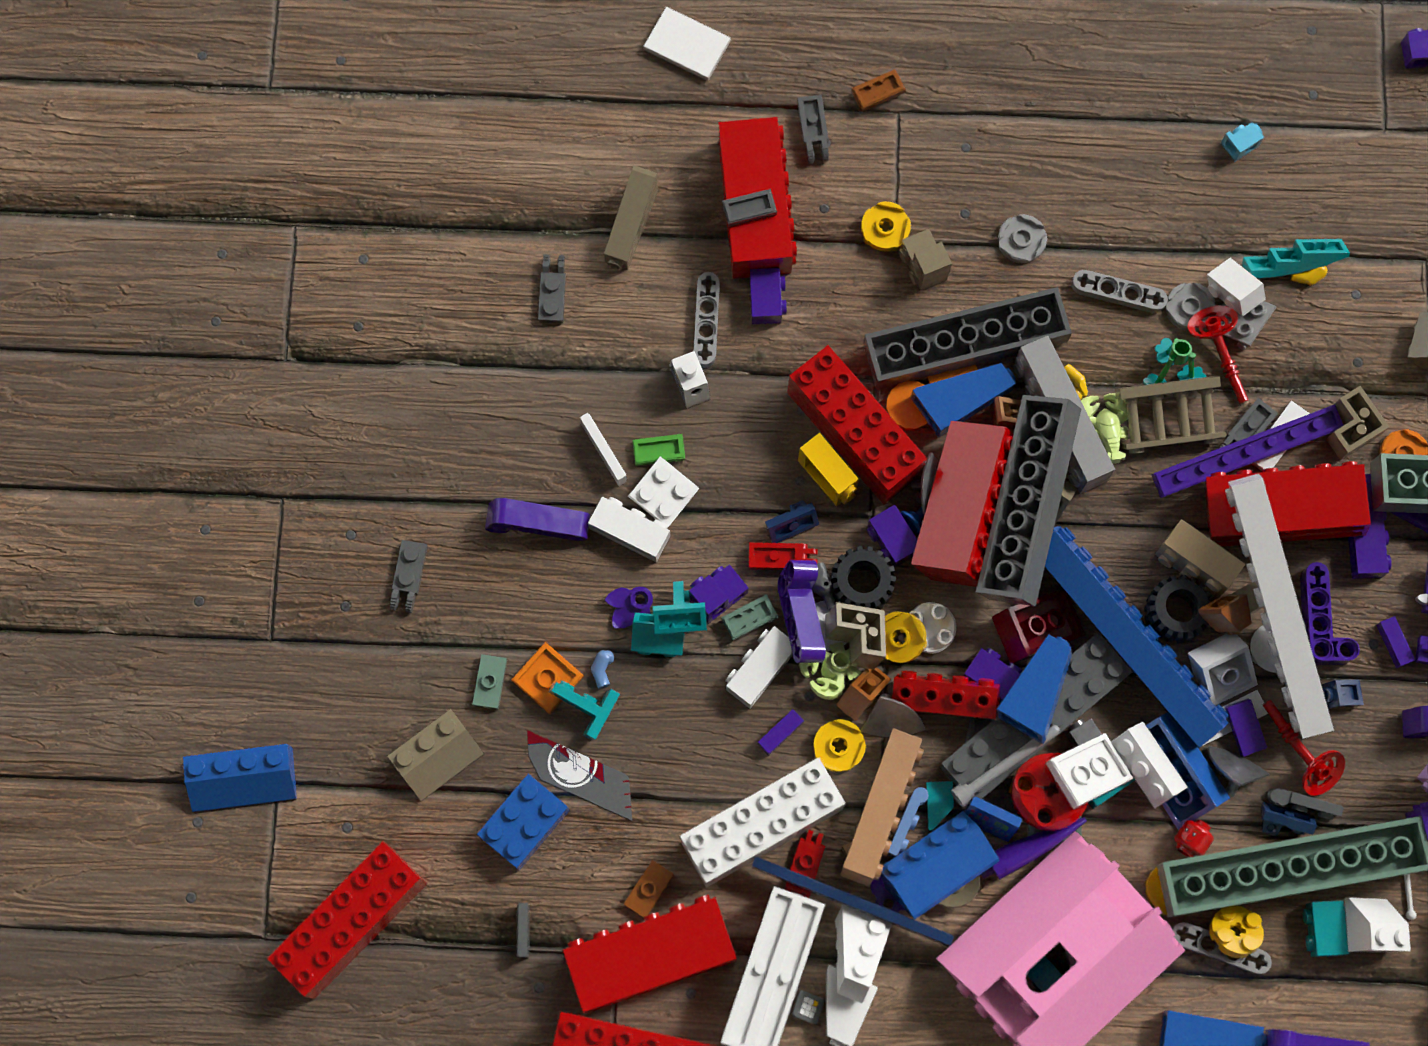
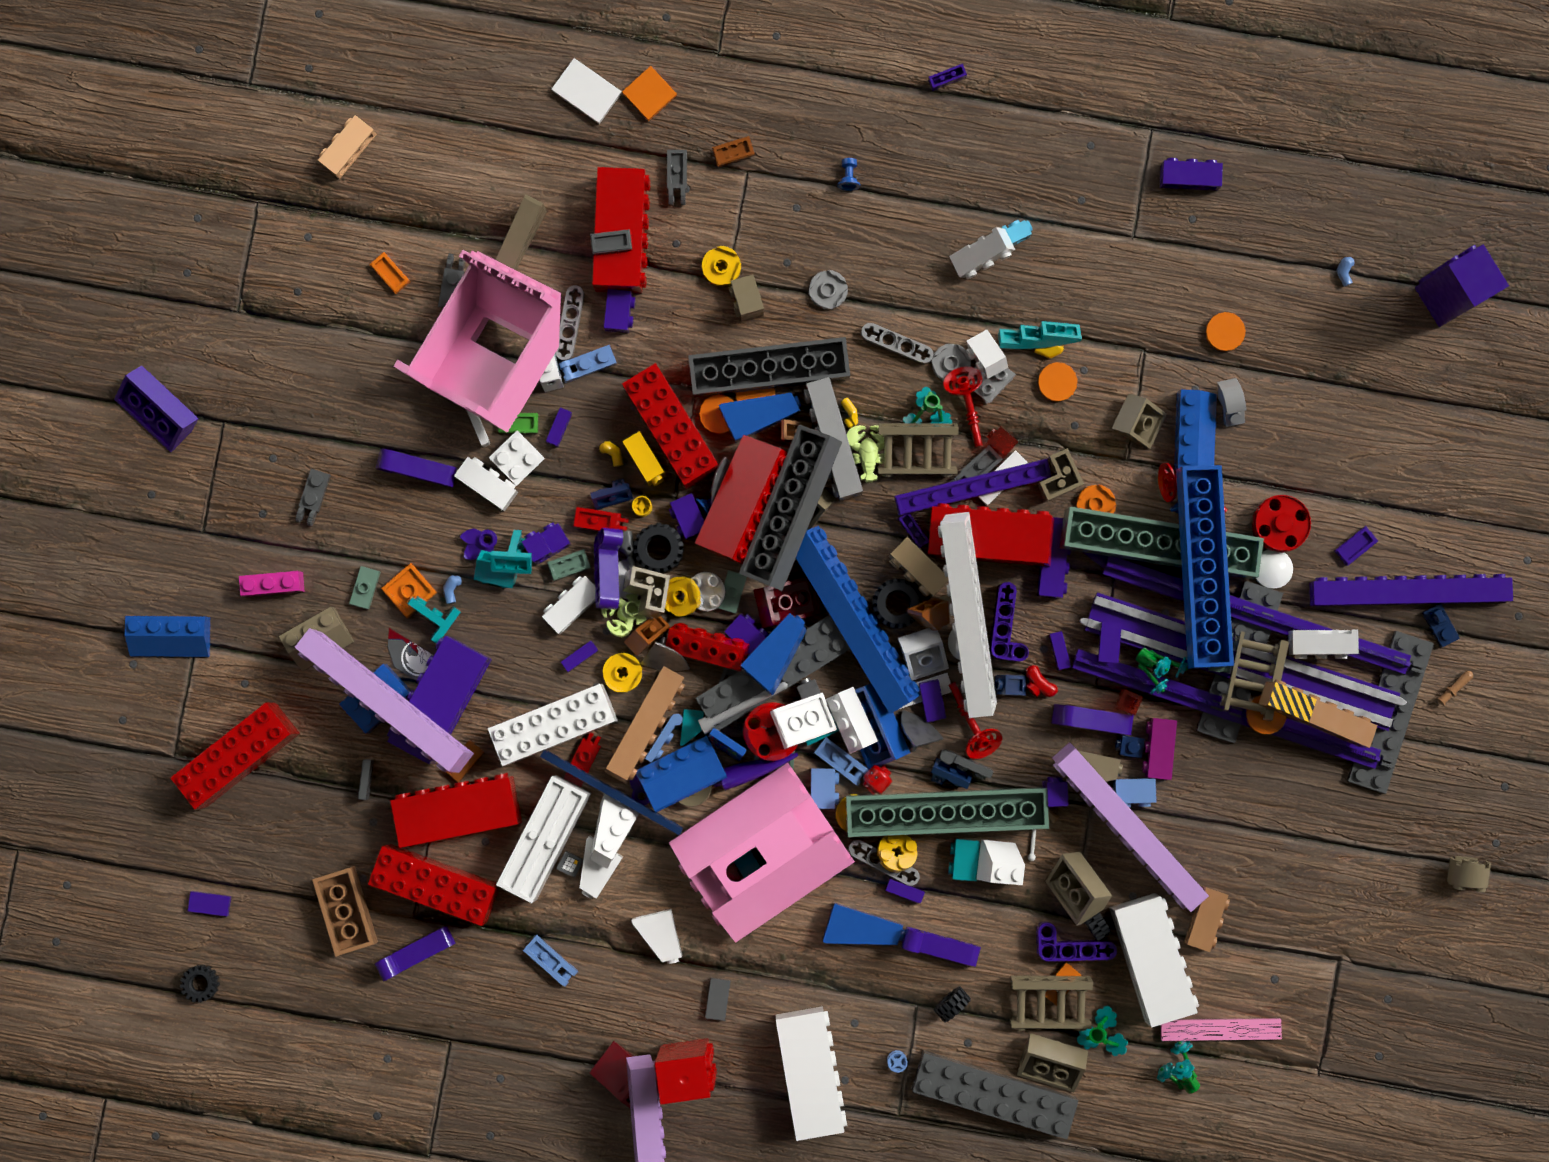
camera: 10 degrees right, 10 degrees up
(194, 490) = (155, 408): none -> dark purple slope
(368, 691) = (271, 583): none -> dark pink brick
(400, 144) = (346, 146): none -> light nougat brick
(472, 288) = (390, 273): none -> orange tile
(543, 817) = (384, 701): none -> lavender brick
(600, 395) = (470, 373): none -> bright pink panel
(606, 810) = (445, 688): none -> dark purple brick
(711, 447) = (559, 427): none -> dark purple piece
(737, 365) = (588, 363): none -> medium blue plate
(764, 36) = (649, 93): none -> orange tile
(784, 467) = (612, 450): none -> yellow arm
(832, 525) = (641, 503): none -> yellow wheel
(966, 617) = (734, 587): none -> sand green plate
(1026, 108) = (849, 183): none -> blue piece
(1127, 851) = (823, 787): none -> medium blue brick
(1141, 821) = (840, 760): none -> medium blue plate
(1177, 510) = (913, 530): none -> dark purple piece
(1208, 167) = (982, 253): none -> white wedge
(1255, 982) = (905, 890): none -> dark purple piece
(1272, 391) = (1001, 441): none -> clear red brick
(1327, 312) = (1057, 382): none -> orange tile
(1377, 688) = (1038, 684): none -> red piece

